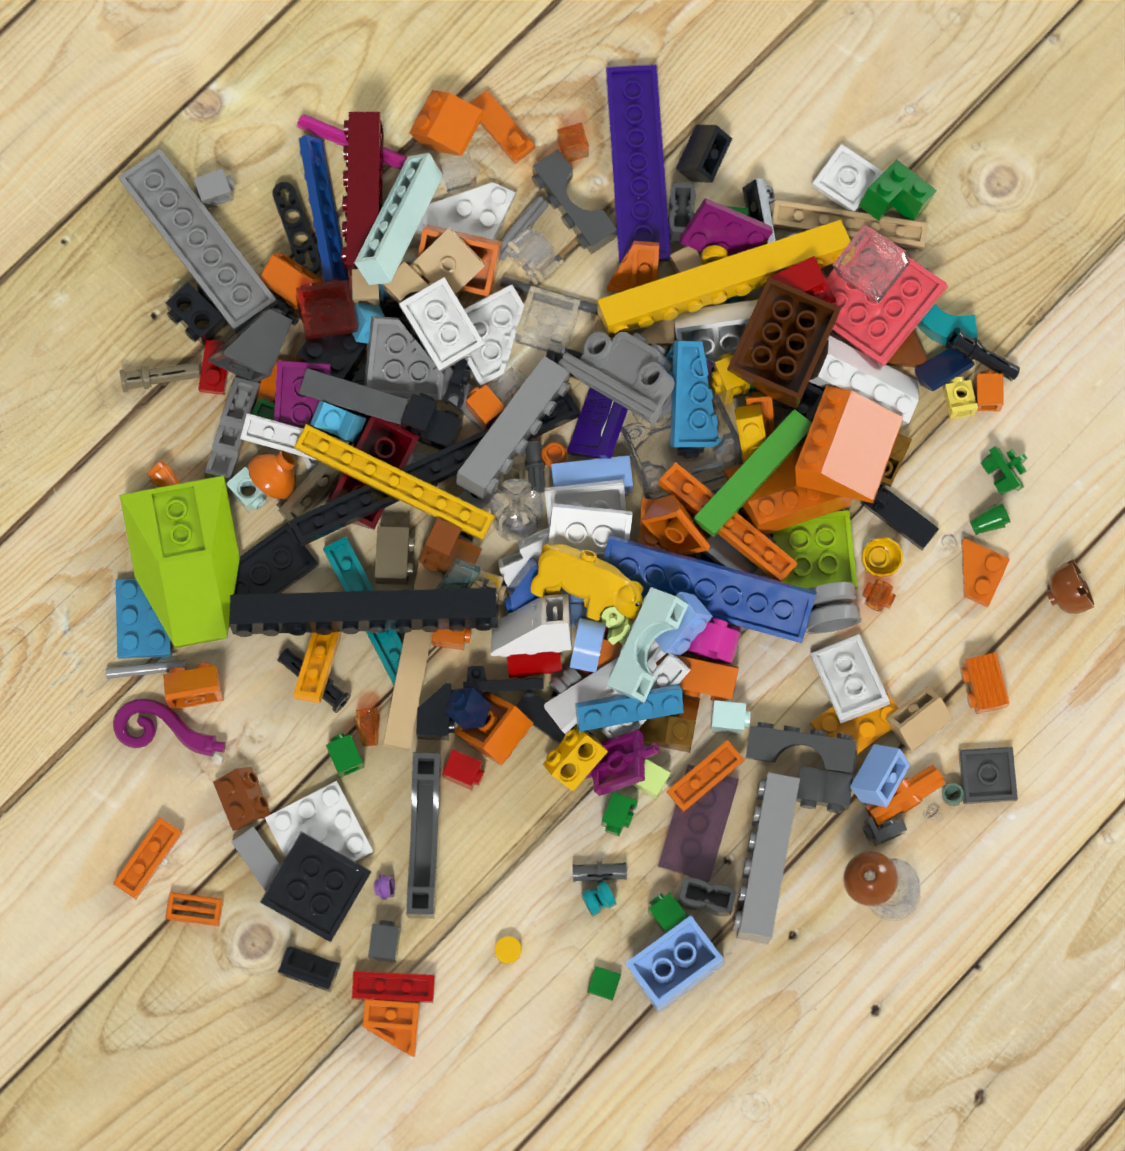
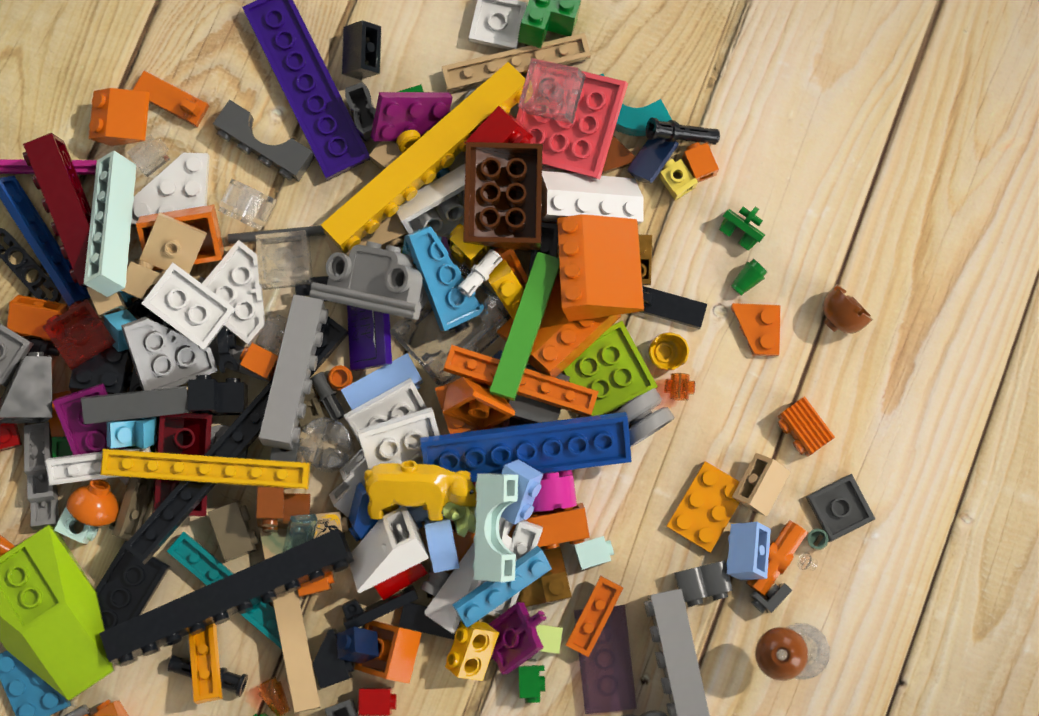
camera: 20 degrees left, 5 degrees up
(530, 216) = (228, 172): light grey axle -> none
(573, 142) = (240, 87): clear orange brick -> none
(636, 267) = (344, 179): orange wing -> none
(730, 406) = (479, 273): none -> white pin
(757, 200) = (425, 71): black hinge -> none
(768, 743) = (702, 547): dark grey arch -> none
(850, 678) = (685, 473): white tile -> none

